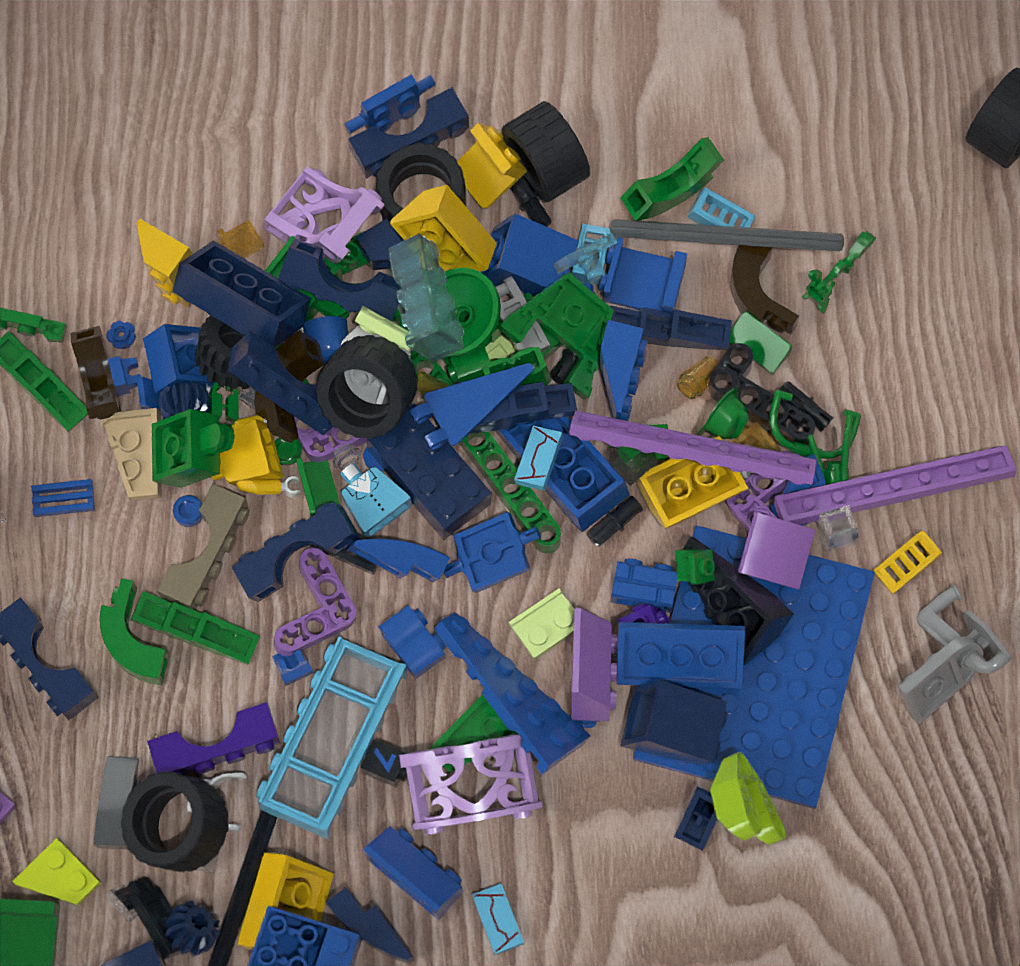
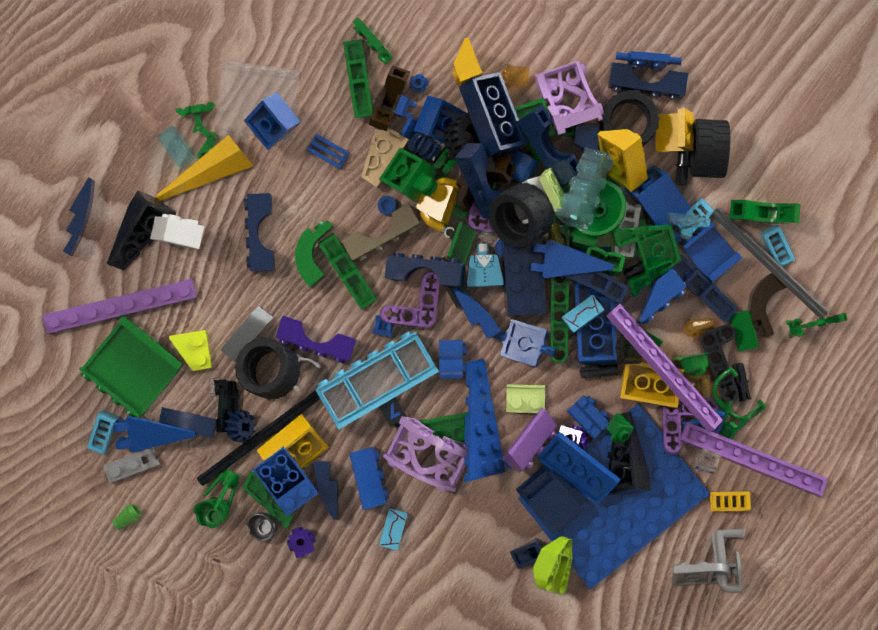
camera: 30 degrees right, 15 degrees up
(776, 550) = (666, 451): medium lavender slope -> none

